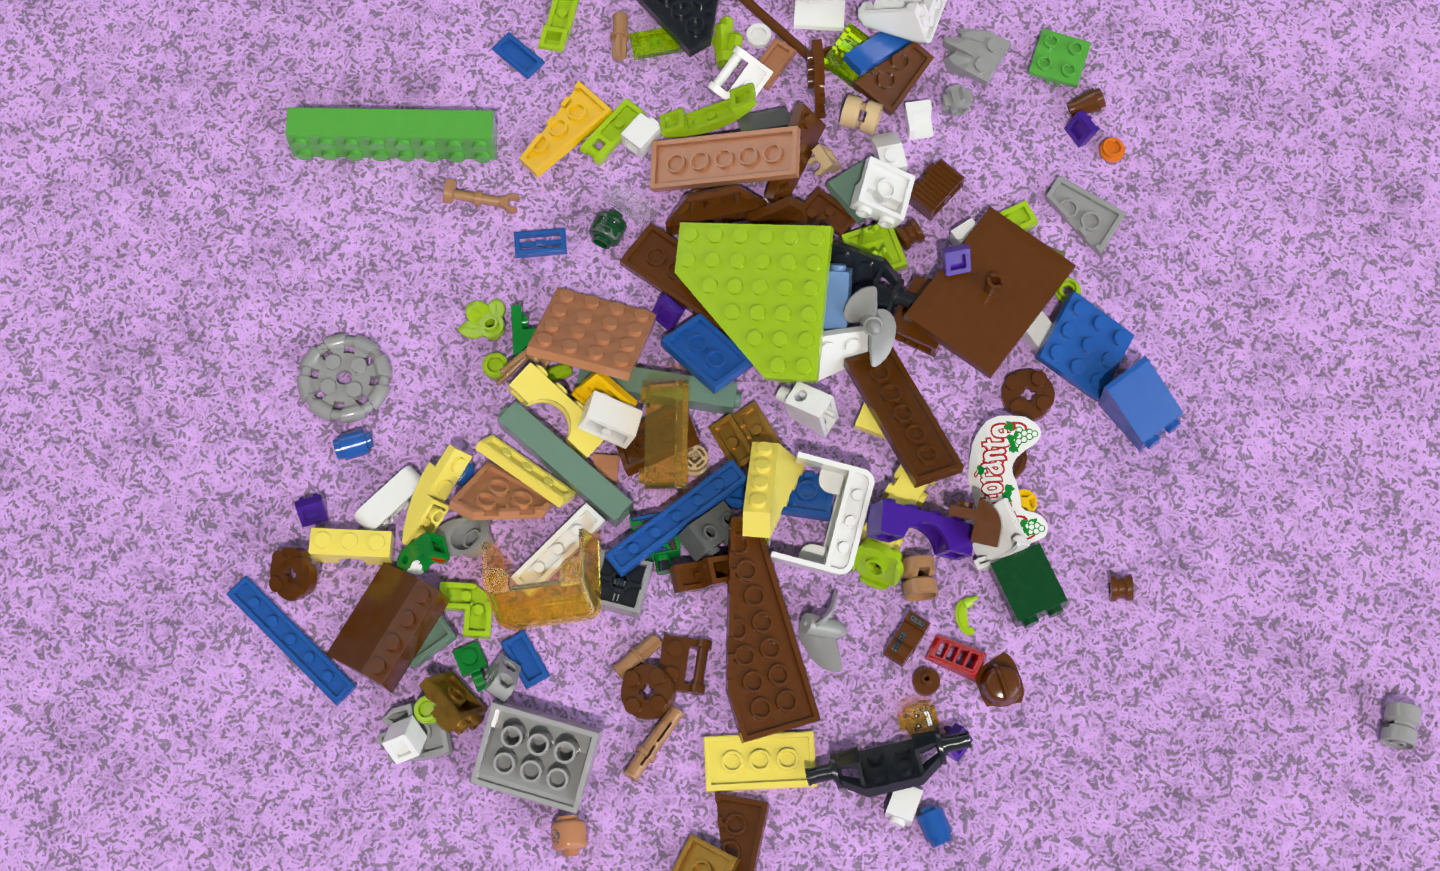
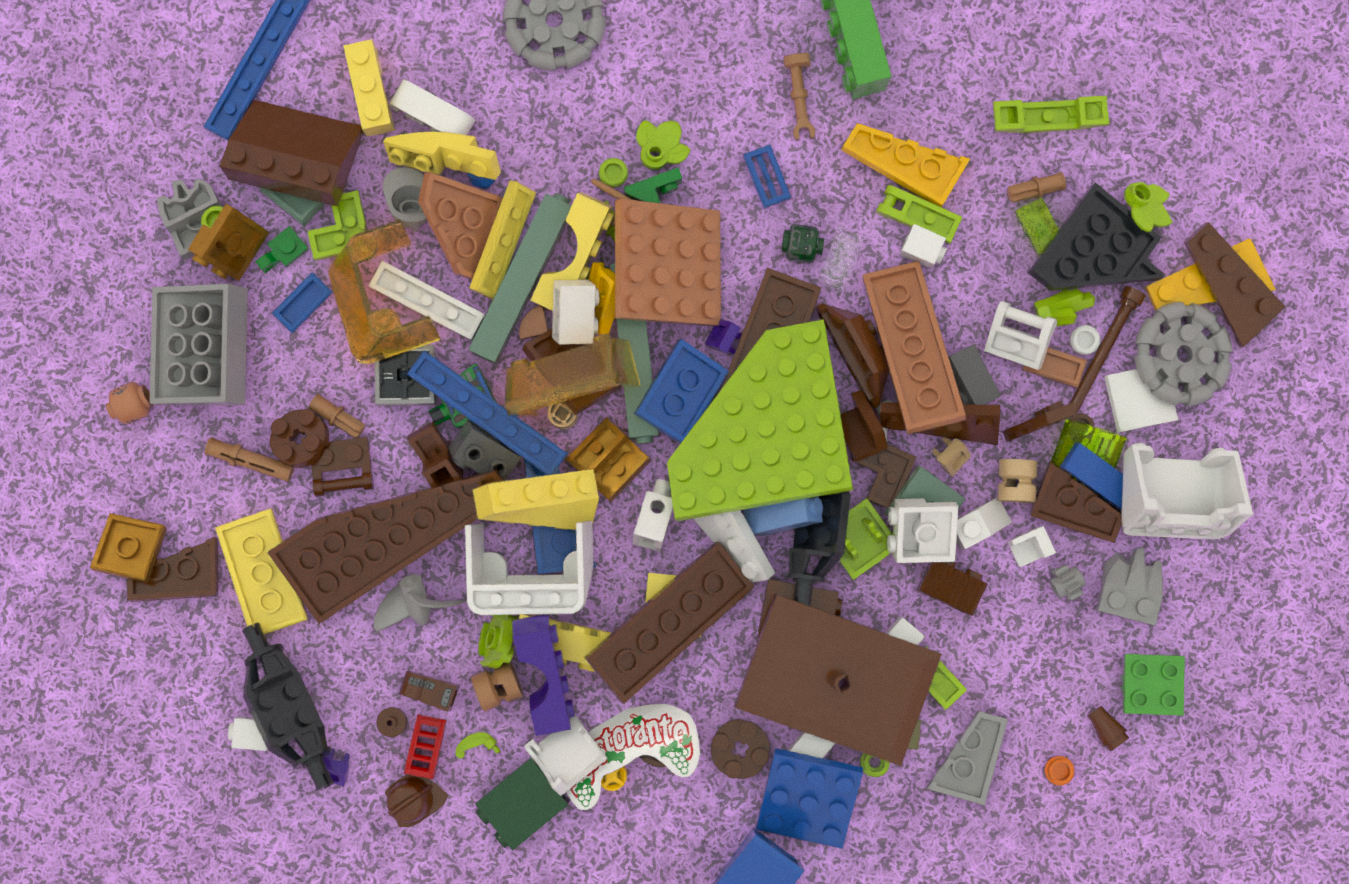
camera: 70 degrees right, 15 degrees up
(281, 577) = (322, 36): reddish brown plate -> none
(311, 510) = (398, 33): dark purple tile -> none
(353, 444) = (481, 52): blue brick -> none
(404, 740) = (176, 207): white panel -> none
(423, 553) = (377, 164): green leg -> none
(500, 679) = (263, 285): light grey leg -> none
(518, 55) = (981, 84): blue tile -> none
(709, 118) = (965, 315): lime slope -> none
(876, 323) = (763, 566): light grey piece -> none
(909, 234) = (889, 572): reddish brown wheel -> none
(918, 717) = (345, 725): clear yellow head -> none
(934, 825) = (239, 771): blue brick -> none
(956, 259) = (857, 634): dark purple tile -> none
(987, 523) = (573, 741): reddish brown brick -> none
(1081, 128) = (1074, 730): dark purple tile -> none

